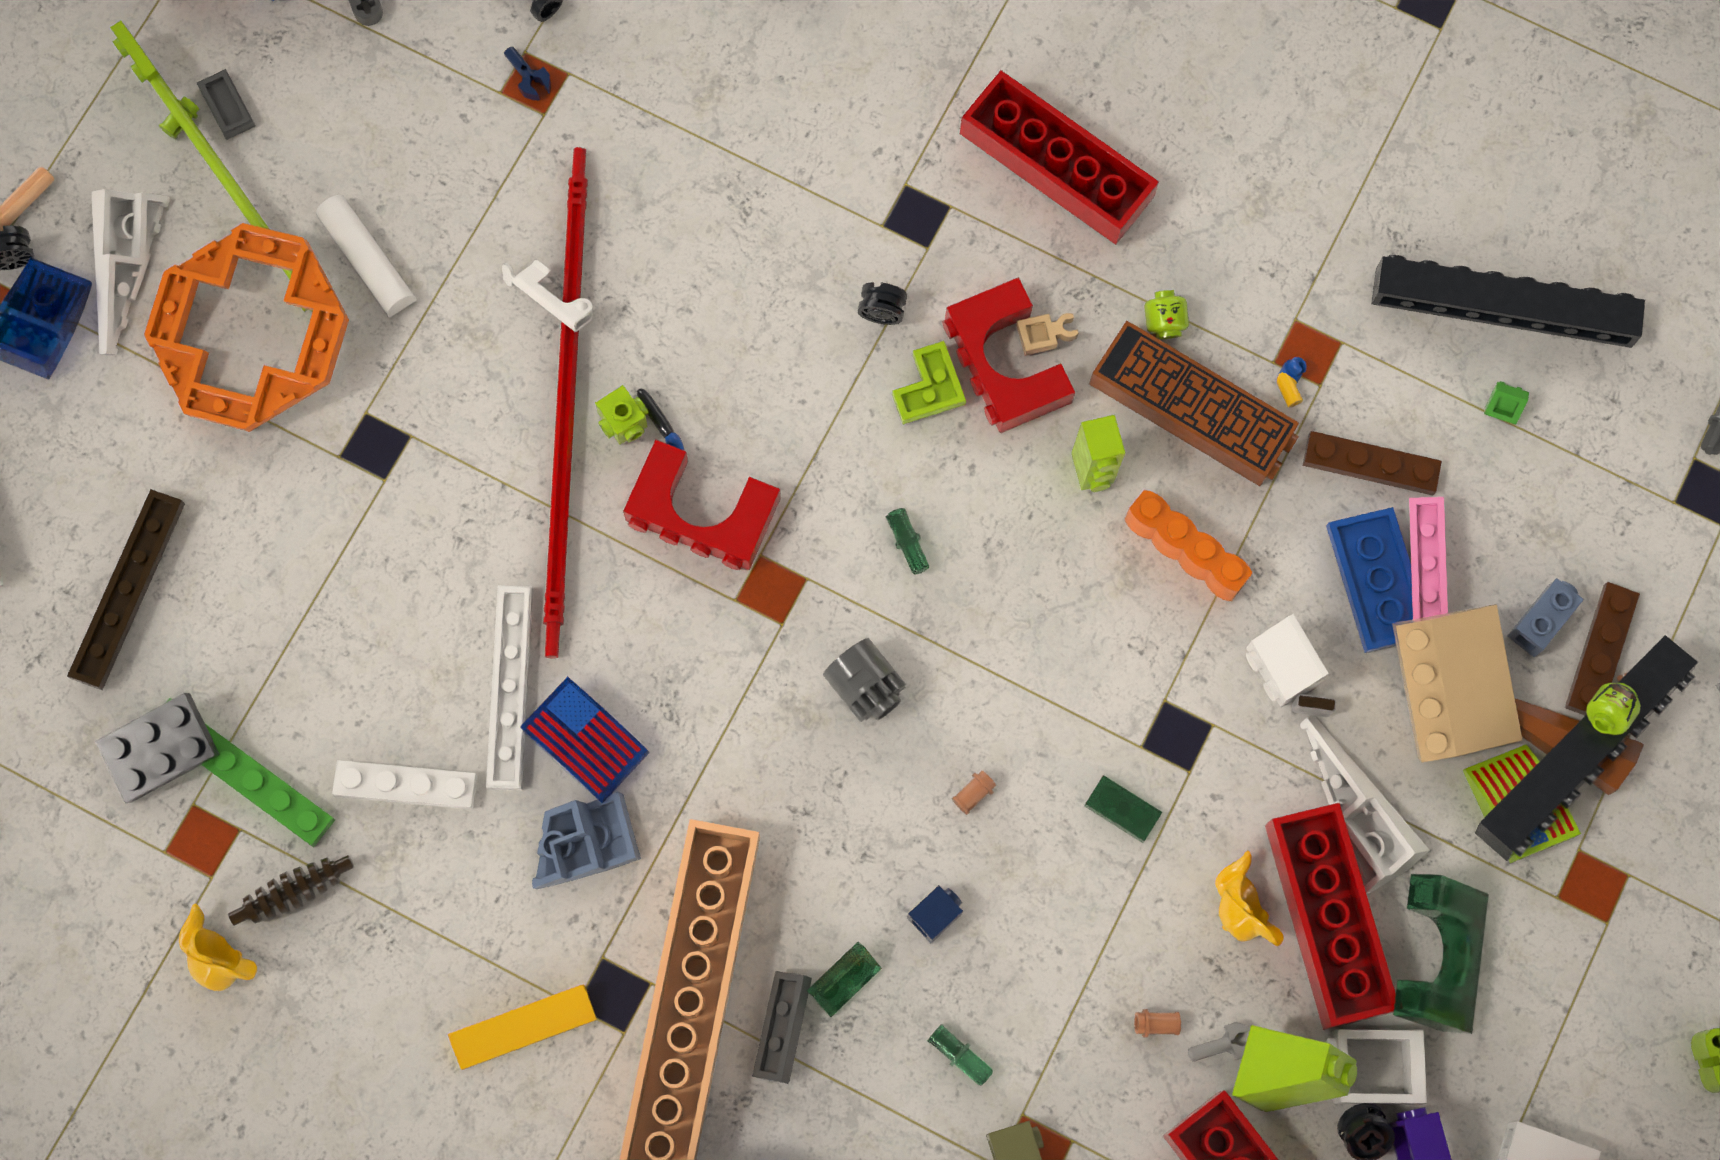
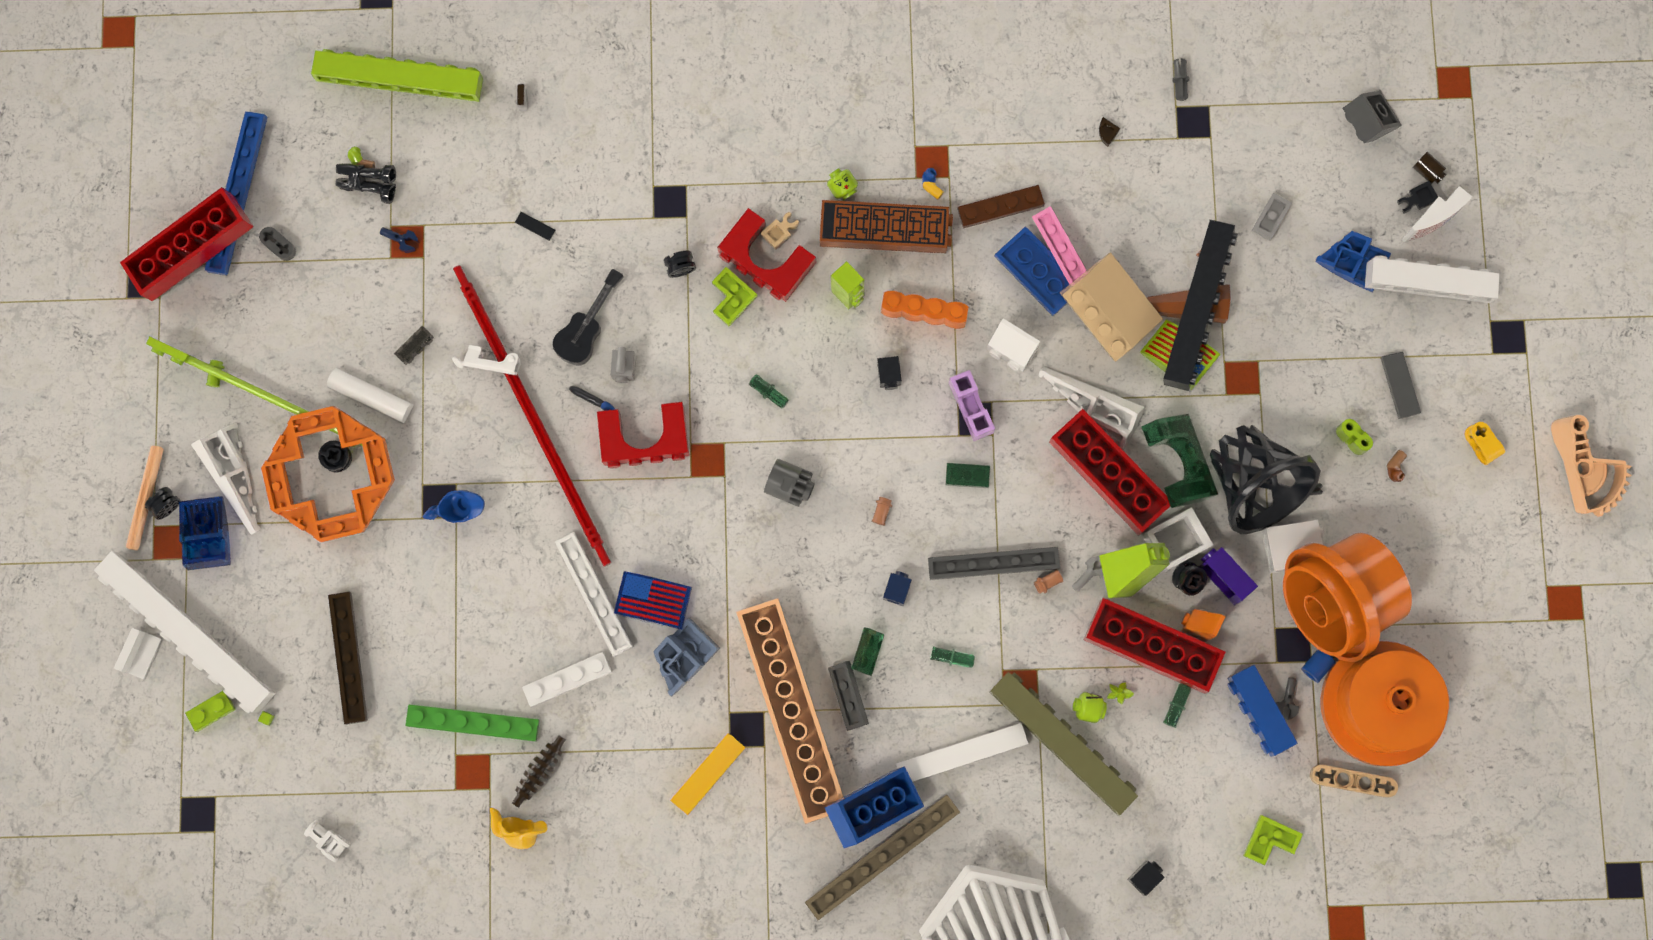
camera: 20 degrees left, 5 degrees up
(157, 748) = (418, 735): plate -> none
(226, 104) = (236, 351): dark grey tile -> none
(269, 312) = (334, 457): none -> black wheel
(391, 465) = (457, 507): none -> blue hair
(462, 222) = (414, 345): none -> clear smoke piece
(622, 415) = (565, 403): lime brick -> none
(685, 330) = (576, 340): none -> black piece
(716, 152) = (535, 226): none -> black window
(728, 397) = (623, 365): none -> light grey brick
(1058, 157) = (732, 125): red brick -> none
(1090, 605) = (889, 372): none -> black brick
(1093, 954) = (993, 563): none -> dark grey plate
(1180, 713) = (970, 405): none -> lavender arch
(1240, 904) = (1058, 493): yellow hair -> none
(1314, 705) = (1040, 361): piece -> none
(1506, 402) = (1057, 132): bright green tile -> none
(1508, 301) = (1027, 72): black brick -> none
(1546, 617) = (1140, 242): sand blue brick -> none
(1567, 1094) = (1275, 460): none -> black piece
(1579, 440) = (1107, 131): none -> dark brown tile
(1602, 645) = (1180, 242): reddish brown plate -> none
(1613, 708) = (1202, 277): lime head -> none

